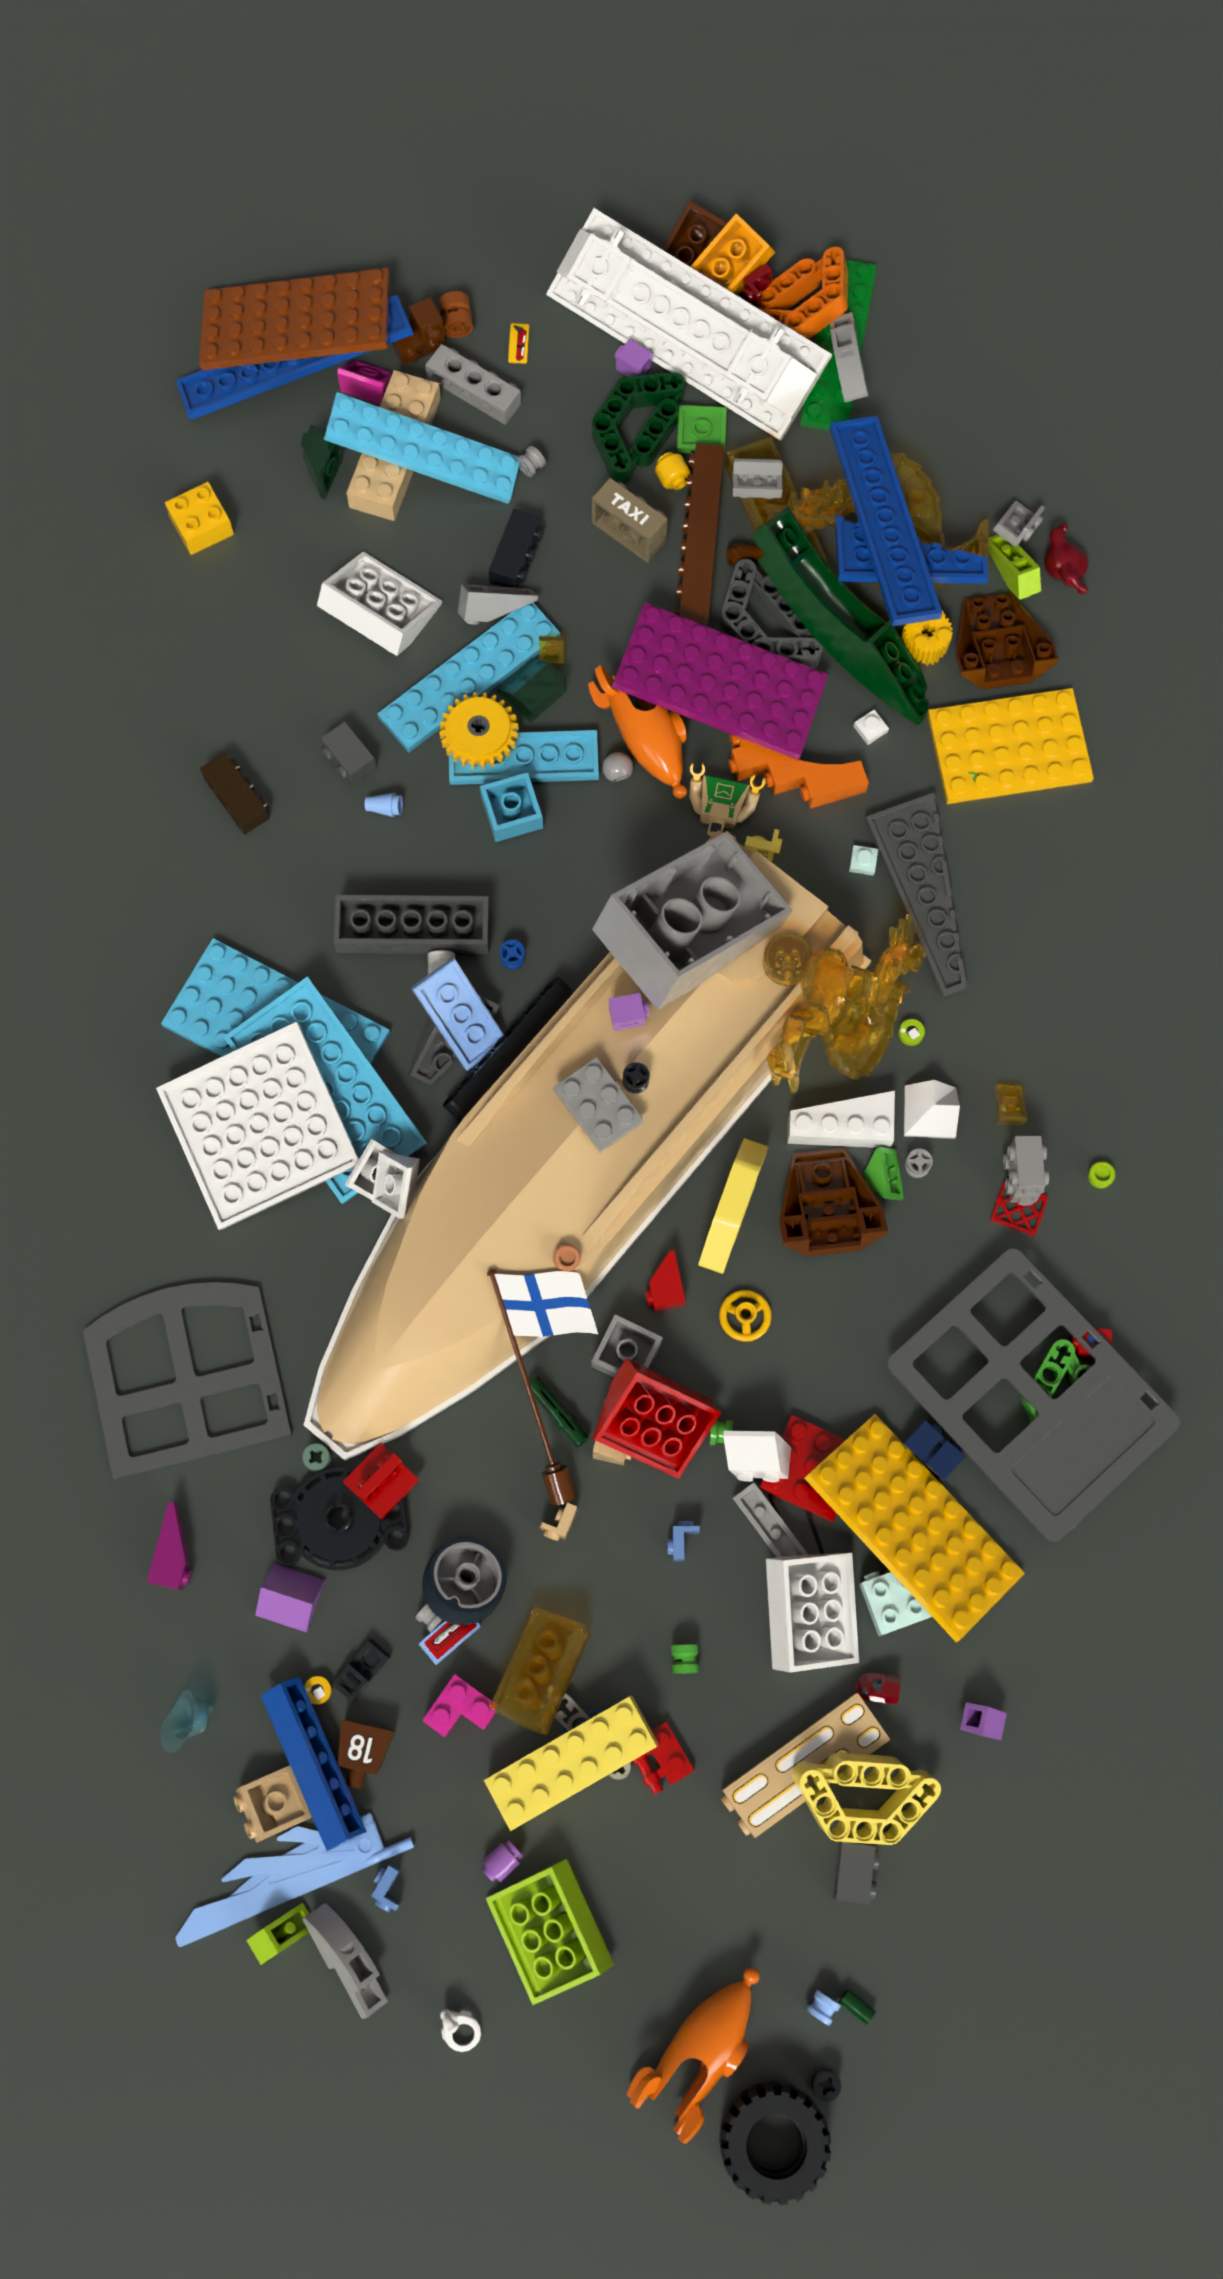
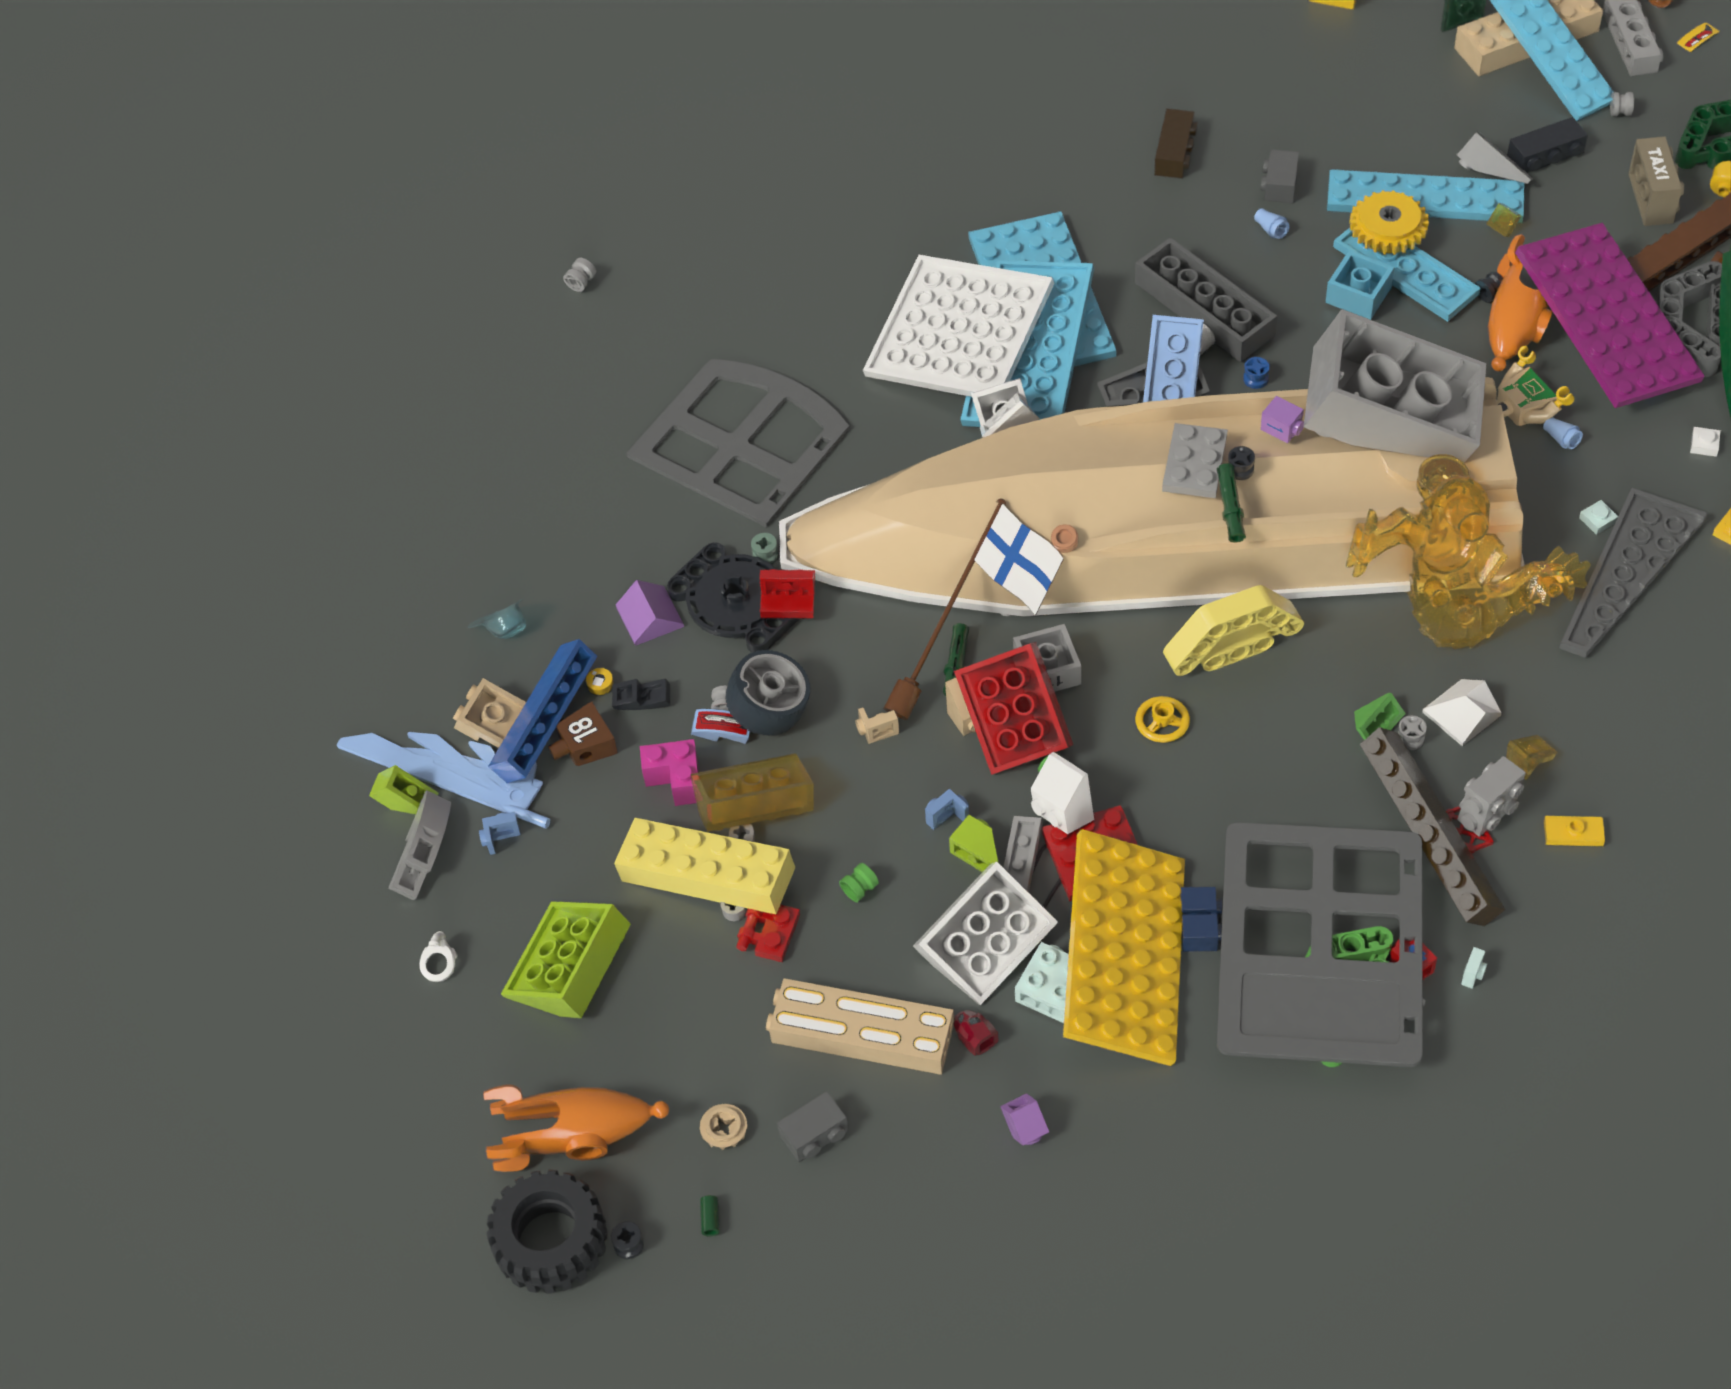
camera: 55 degrees right, 20 degrees down
(171, 1558) = (606, 522): magenta slope -> none
(378, 602) = (1407, 108): white slope -> none
(501, 1861) = (588, 885): medium lavender brick -> none
(533, 688) = (1463, 236): clear green slope -> none
(601, 721) = (1489, 286): none -> black wheel
(617, 766) = (1470, 321): light grey piece -> none
(658, 1115) = (1232, 513): none -> dark green pin
(666, 1286) = (1126, 648): red slope -> none
(732, 1546) = (974, 843): none -> lime slope
(764, 847) = (1525, 449): light yellow bracket -> none
(774, 809) = (1564, 433): none -> light blue cone
(805, 1926) = (728, 1115): none -> tan gear
(817, 782) = (1615, 437): orange arch -> none
(823, 2007) = (685, 1188): light blue wheel -> none
(829, 1205) = (1302, 698): reddish brown wedge -> none
(849, 1123) = (1383, 658): white wedge -> none
(905, 1782) = (885, 1051): light yellow piece -> none
(911, 1032) = (1507, 650): lime tile -> none
(1007, 1228) = (1431, 822): none -> brick
(1088, 1138) = (1574, 831): none -> yellow plate
(1101, 1174) = (1556, 863): lime tile -> none
(1134, 1310) = (1475, 968): none -> light aqua plate

